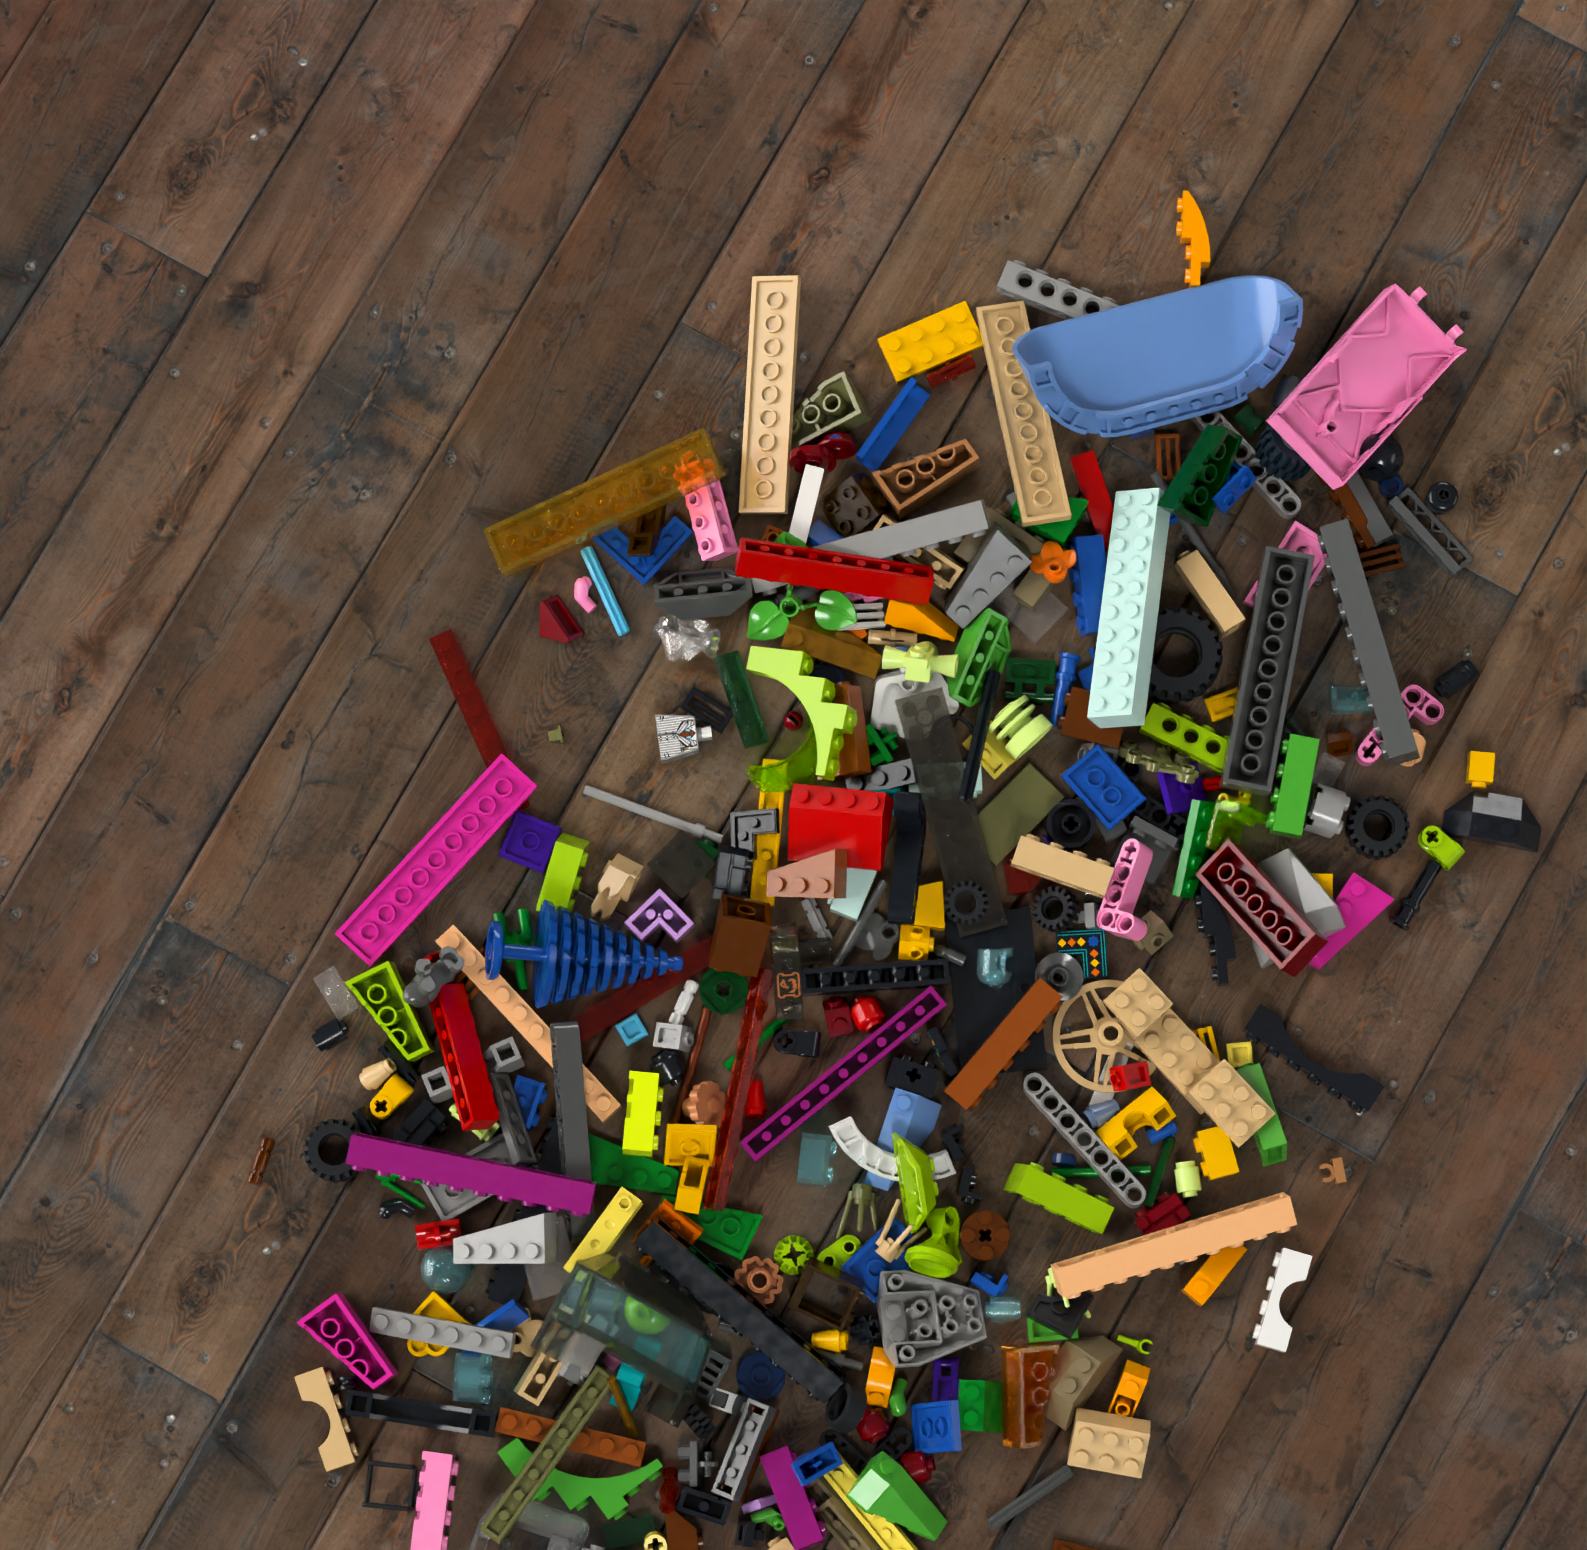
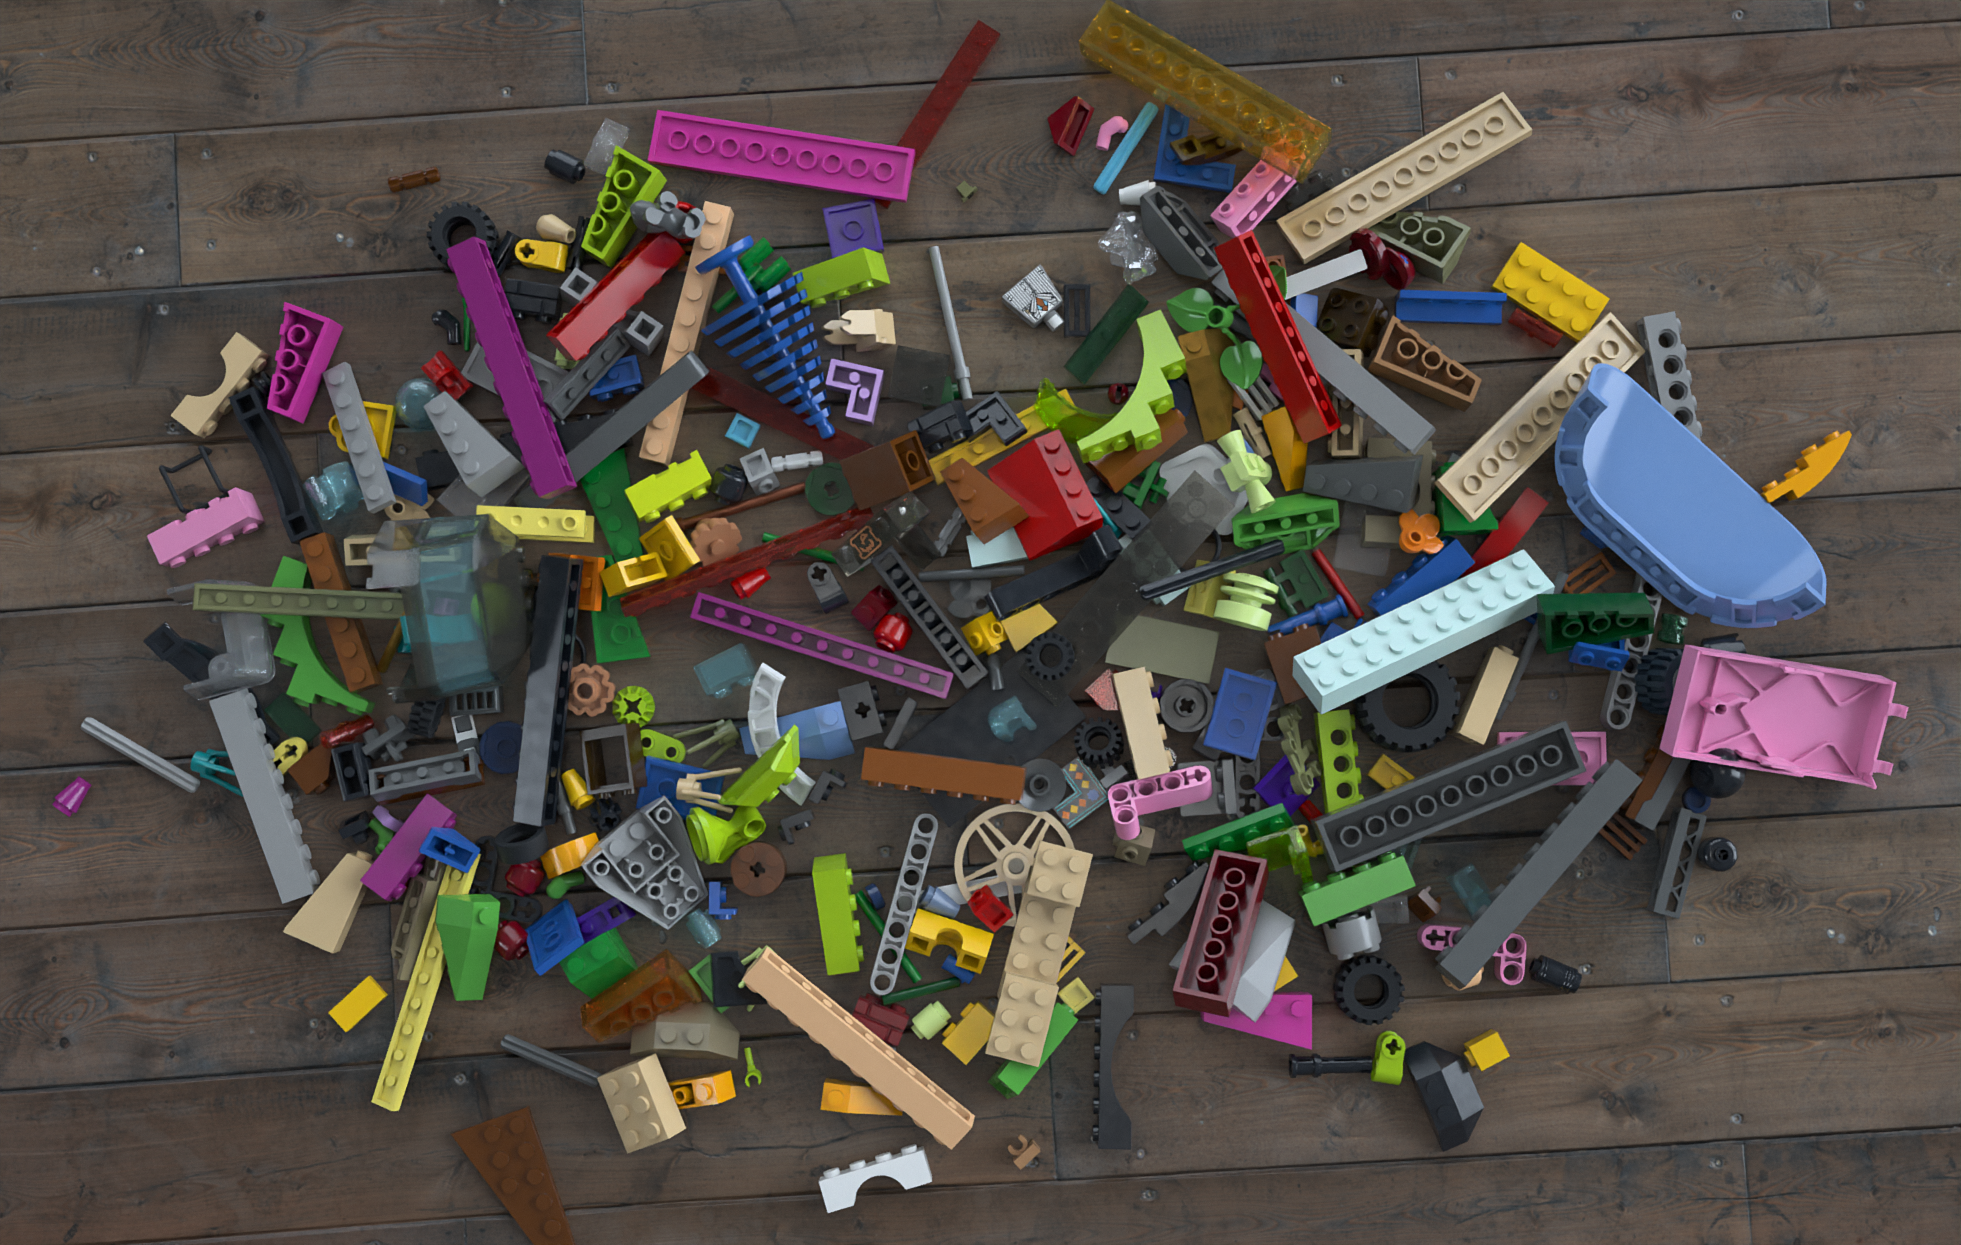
camera: 60 degrees right, 5 degrees up
(646, 605) = (1131, 194): none -> white cone
(1051, 648) = (1337, 583): none -> red bar

